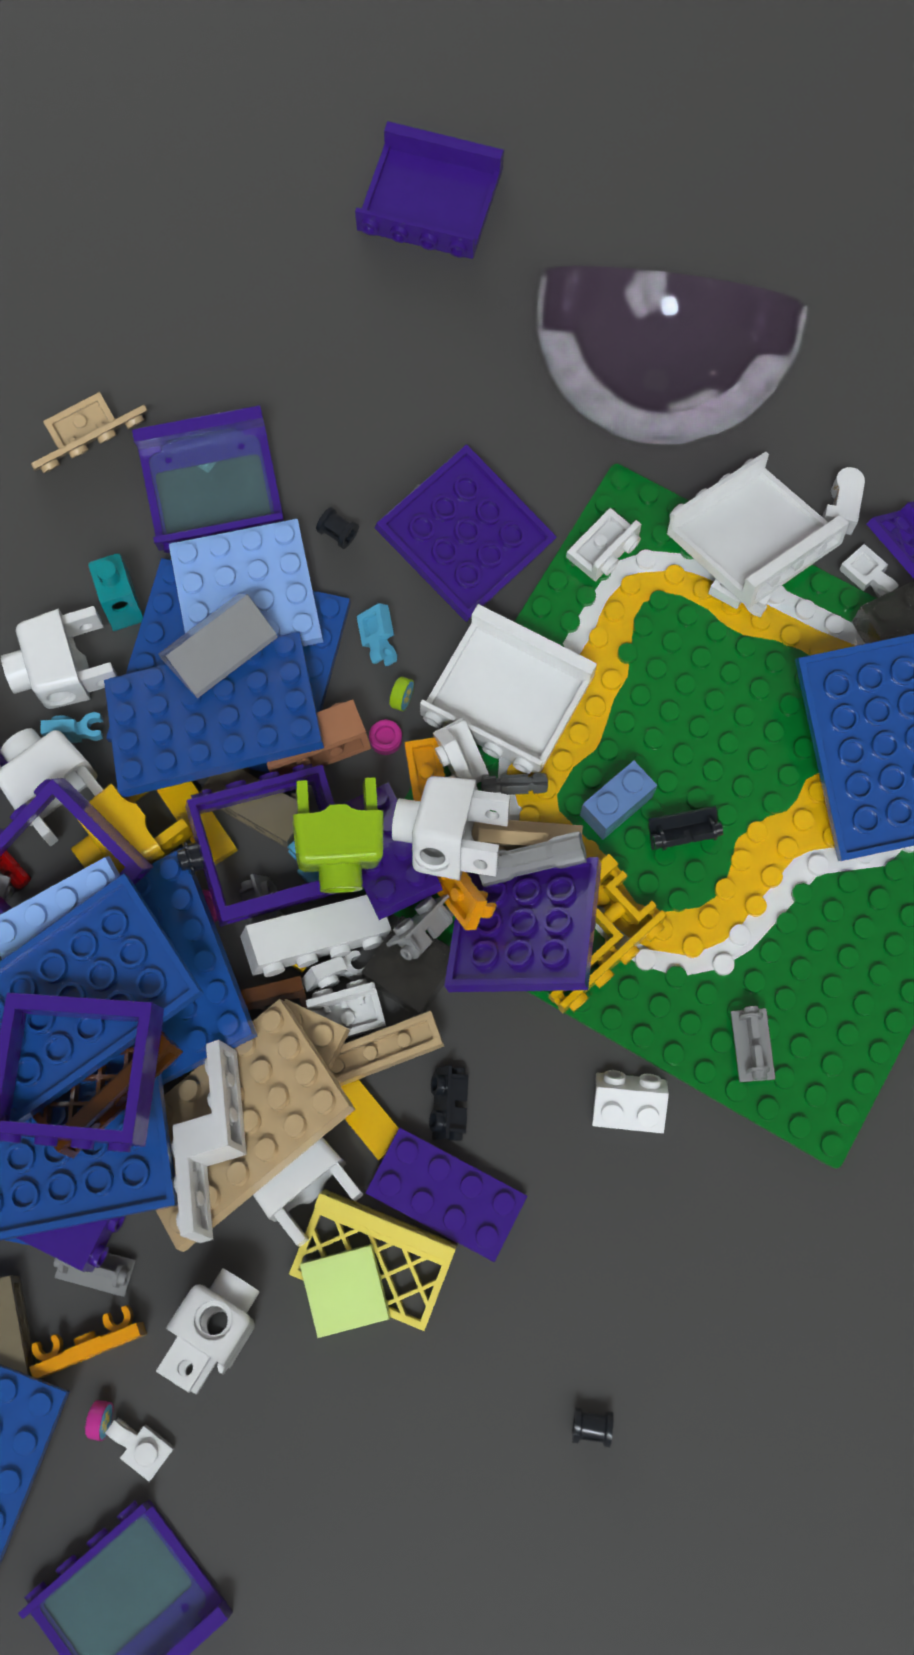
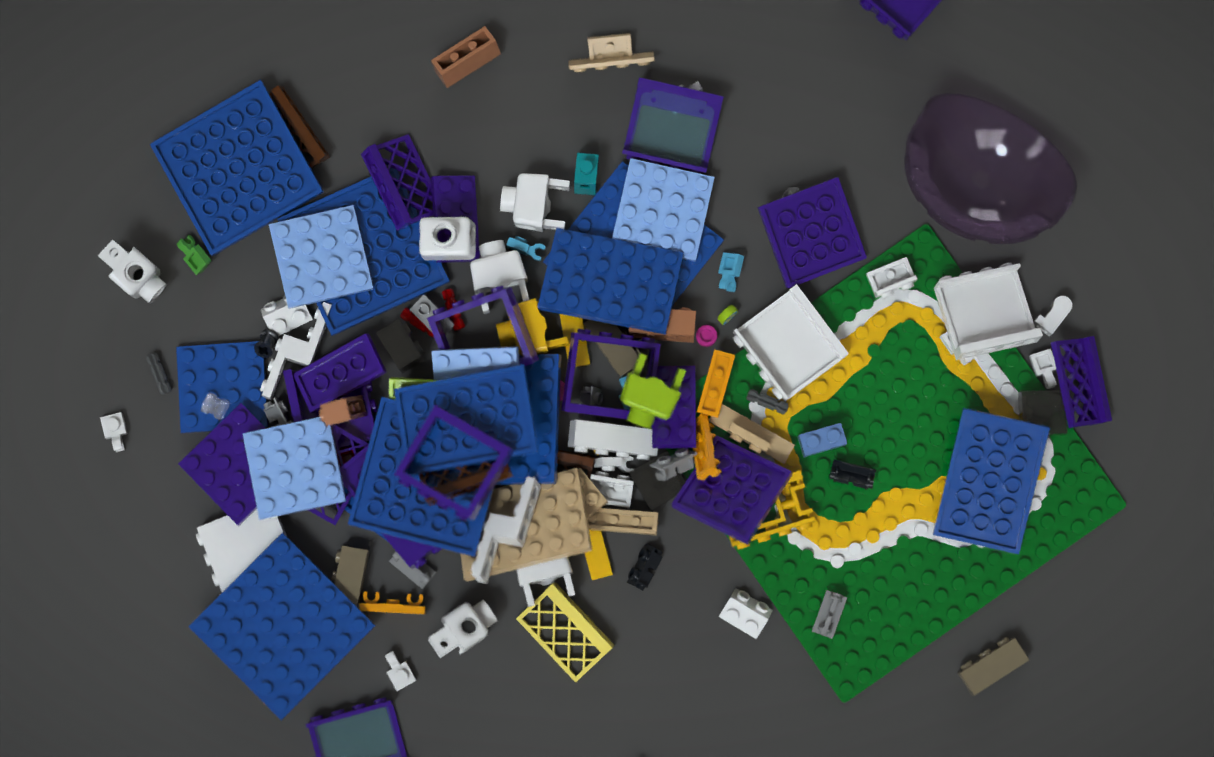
camera: 25 degrees right, 10 degrees up
(99, 1420) = (383, 647): dark pink tile -> none
(190, 858) = (562, 364): black plate -> none
(218, 644) = (632, 240): light grey slope -> none
(337, 528) = (736, 190): black bush -> none
(345, 1290) = (542, 641): yellowish green tile -> none
(443, 827) = (711, 414): white piece -> none
(446, 1194) = (620, 616): dark purple plate -> none
(459, 752) = (744, 374): white bracket -> none
(556, 853) = (738, 451): light grey axle -> none

